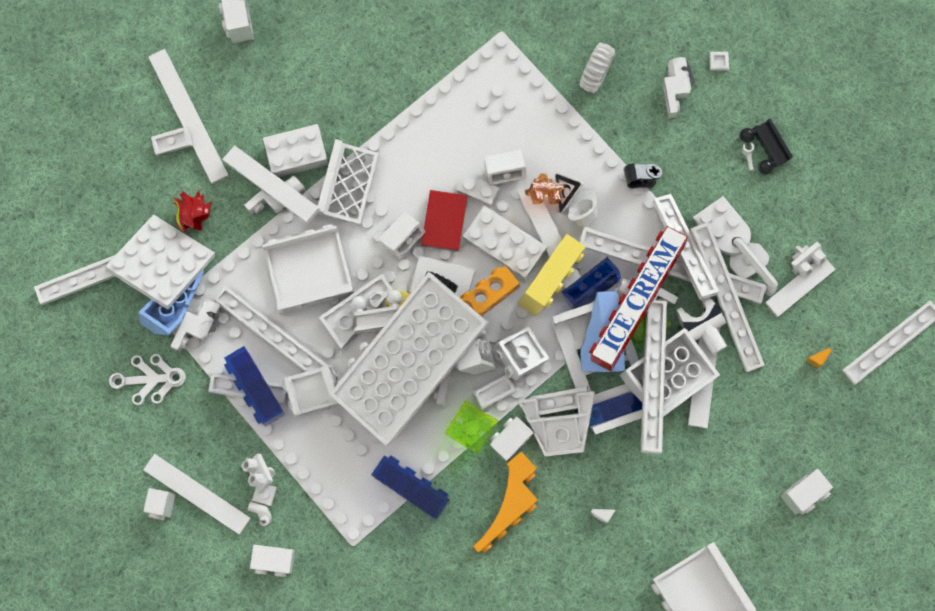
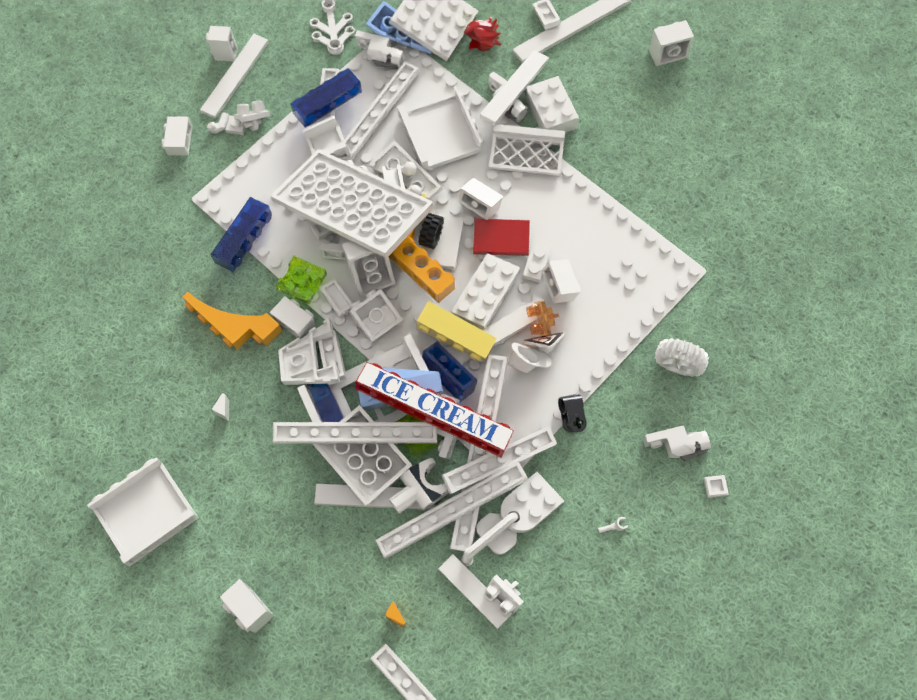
camera: 85 degrees right, 10 degrees down
(771, 142) = (629, 549): black gear -> none

